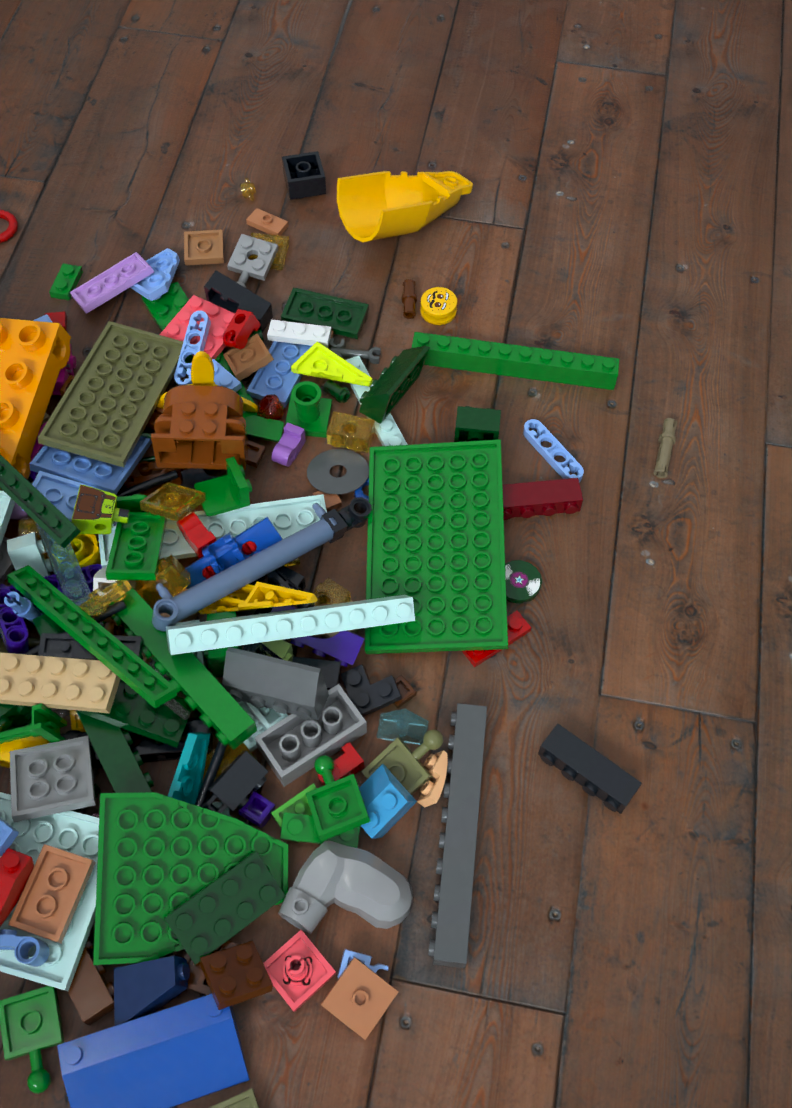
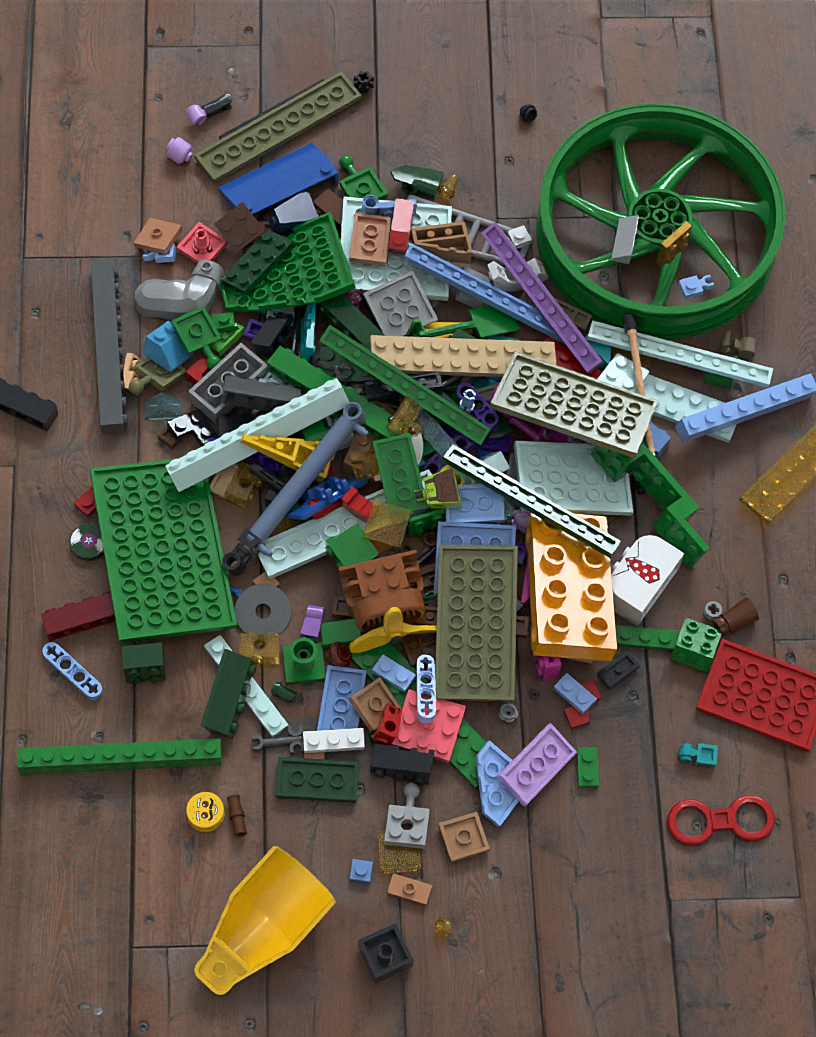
camera: 165 degrees right, 5 degrees up
(306, 243) = (361, 871): none -> medium blue plate
(326, 364) = (299, 709): neon yellow wing -> none

